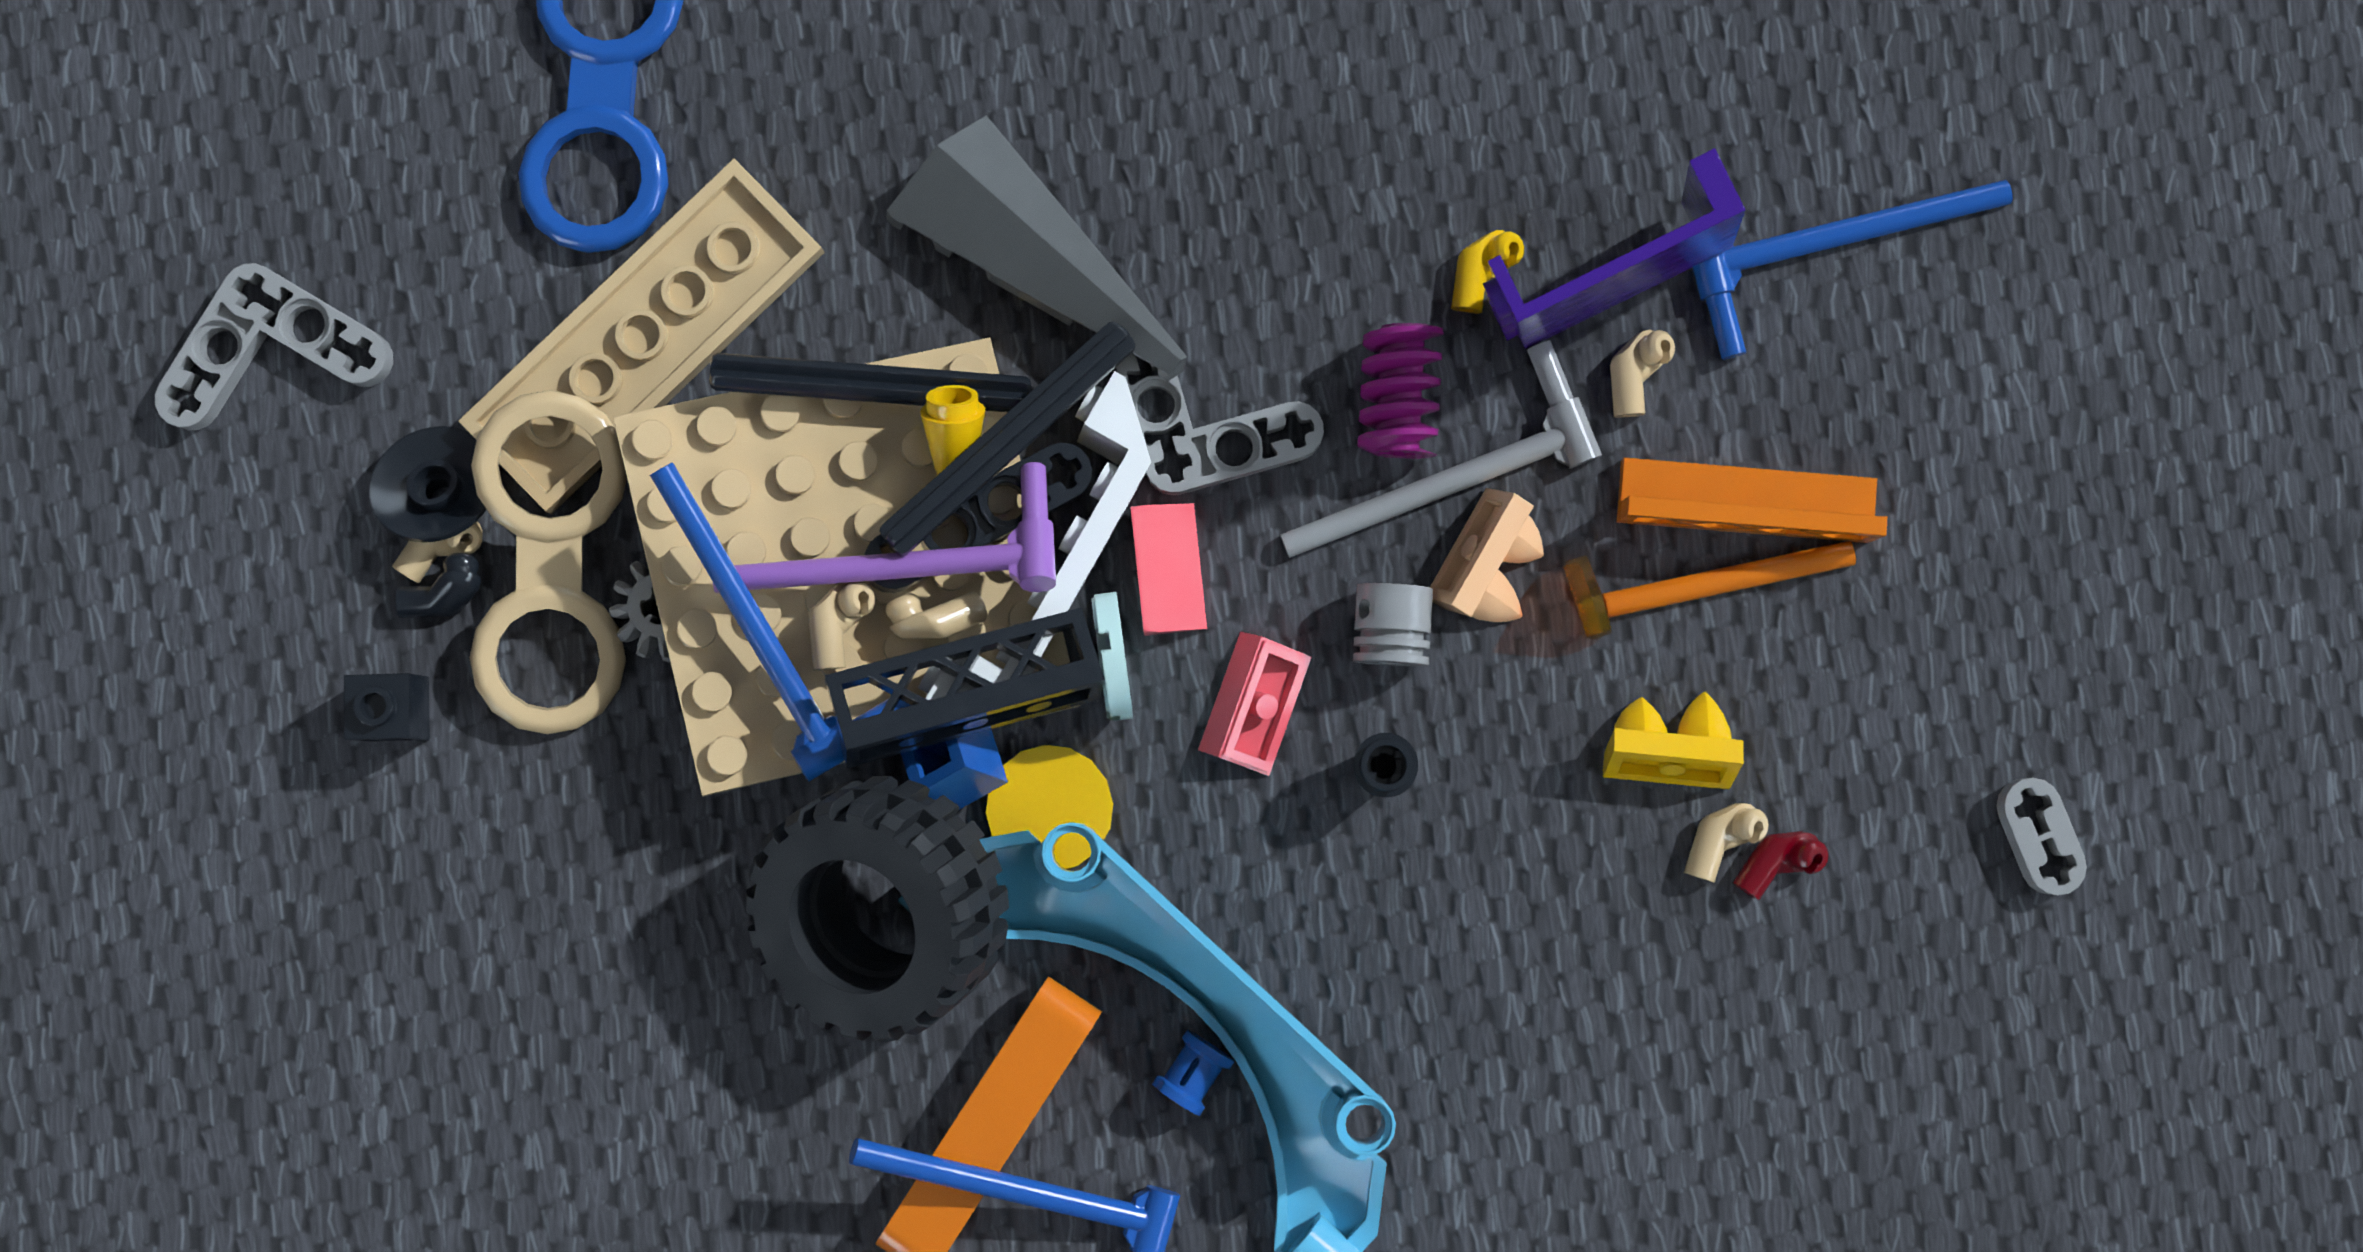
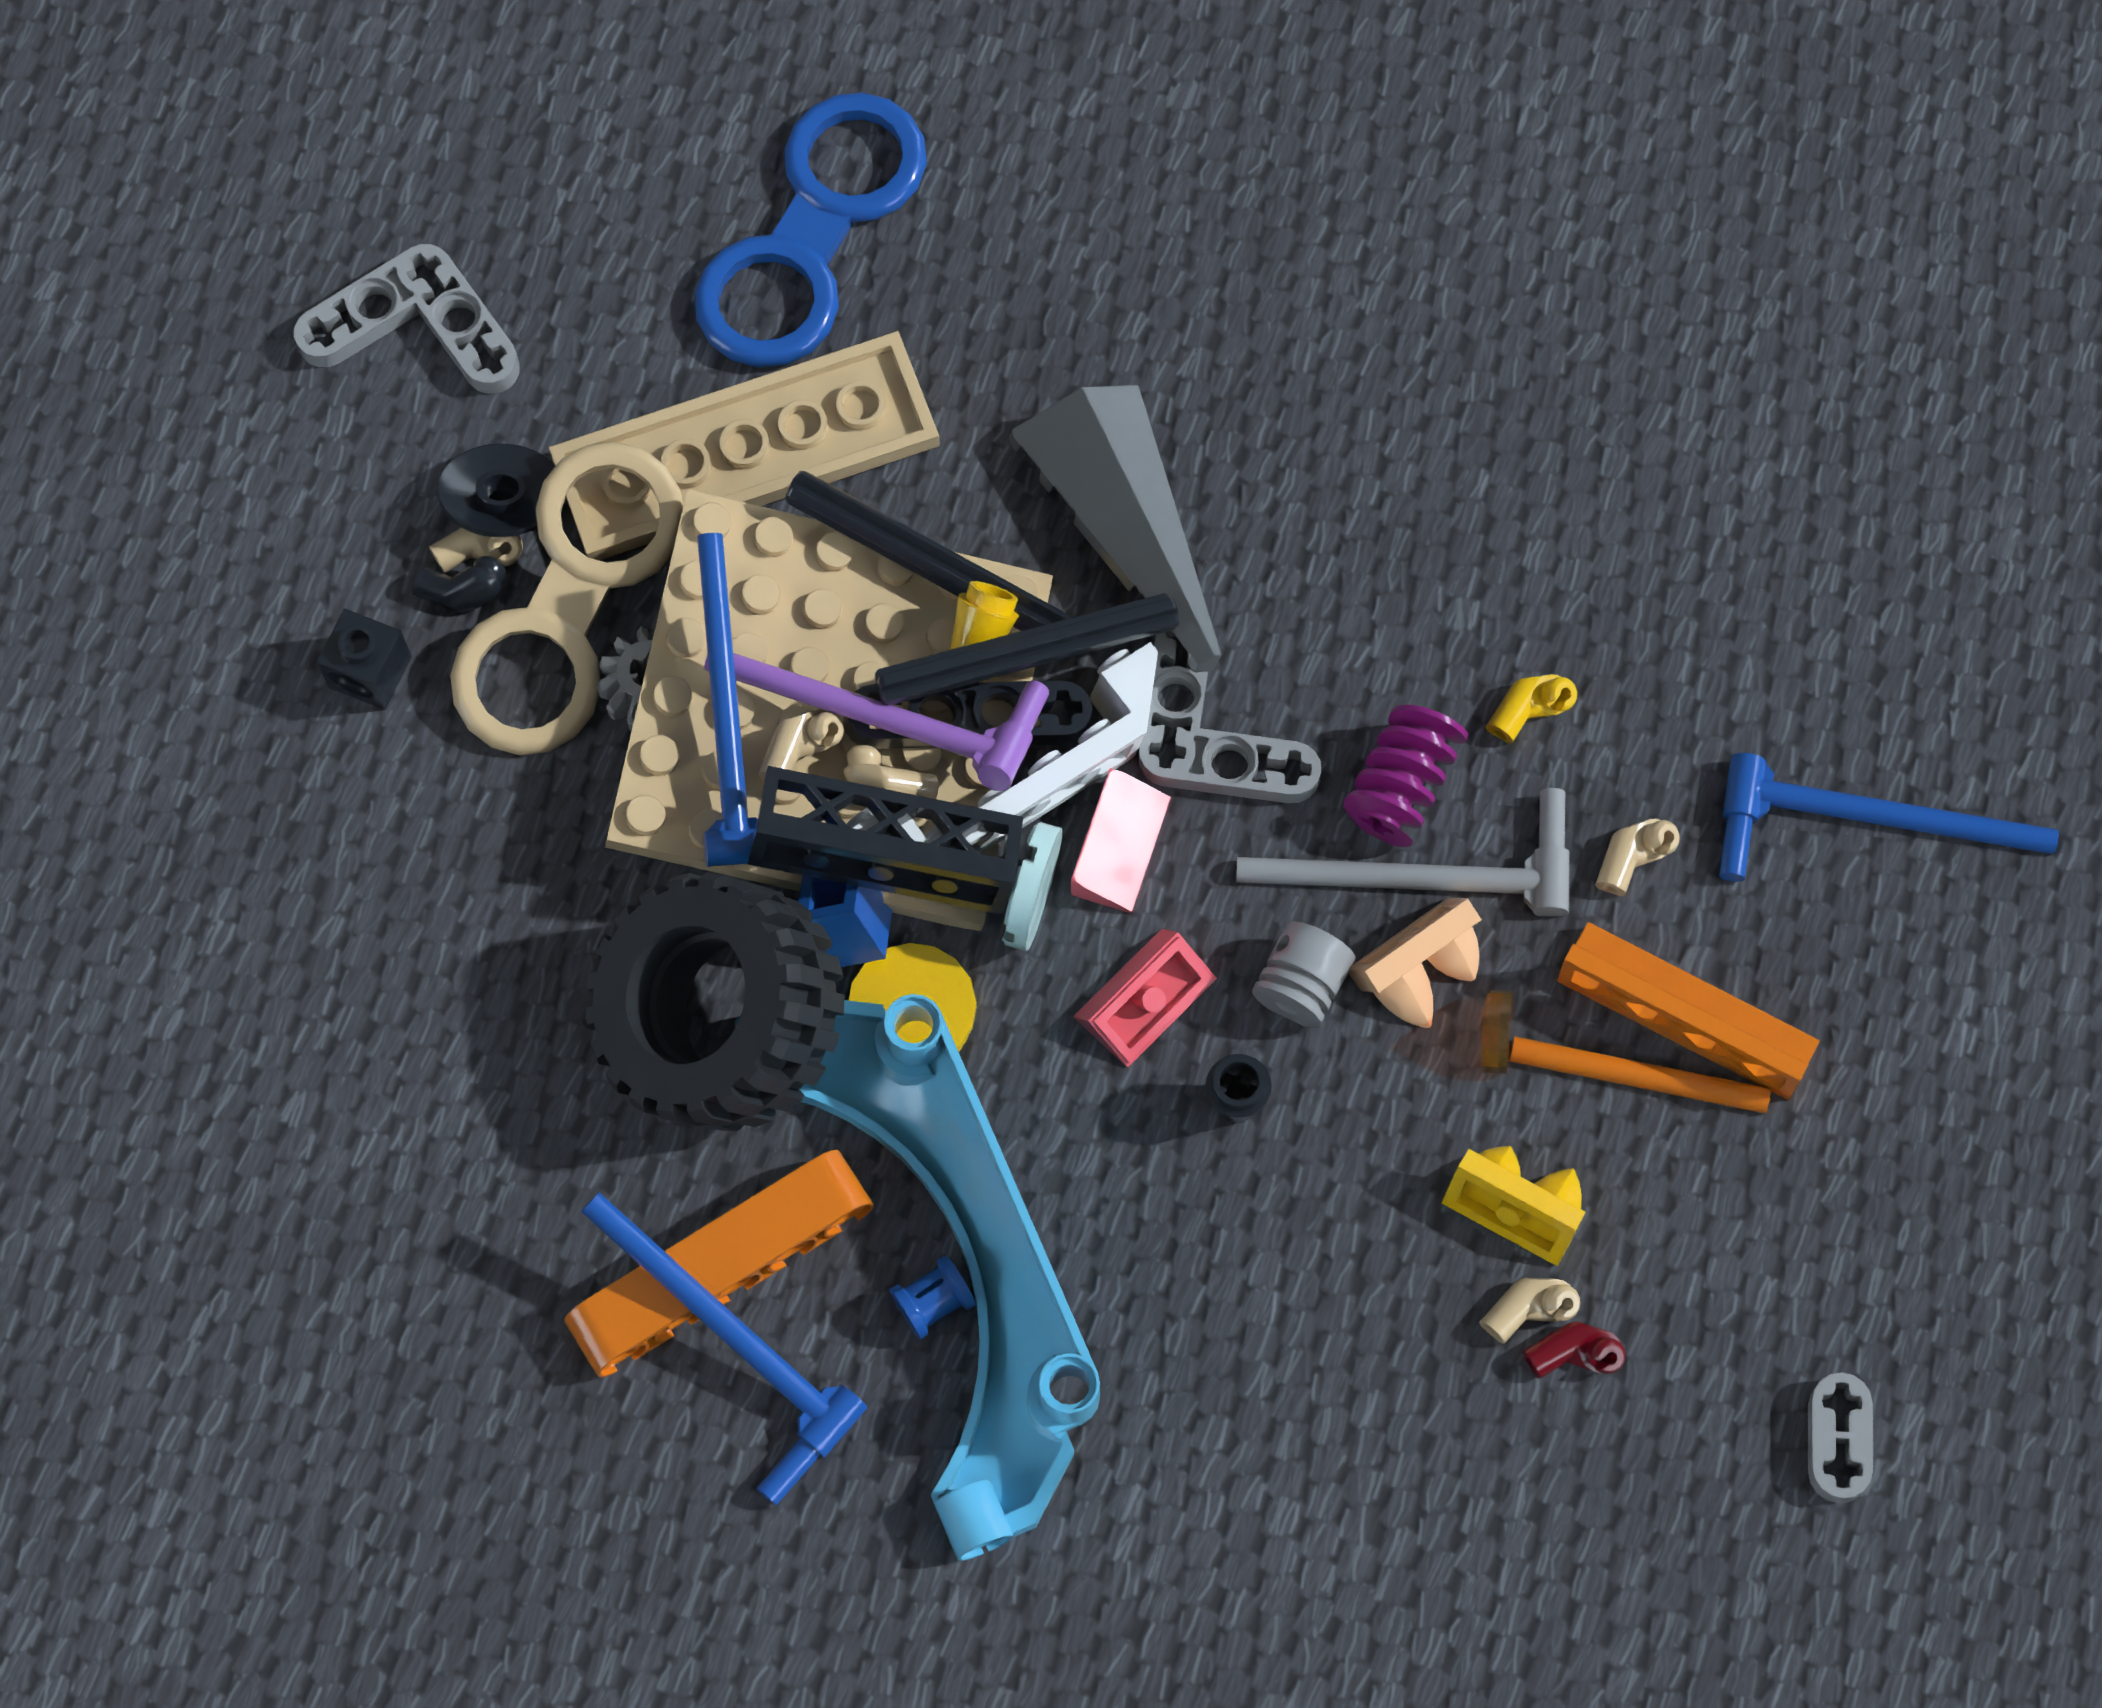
camera: 25 degrees right, 15 degrees down
(1714, 222) = (1644, 730): dark purple panel -> none

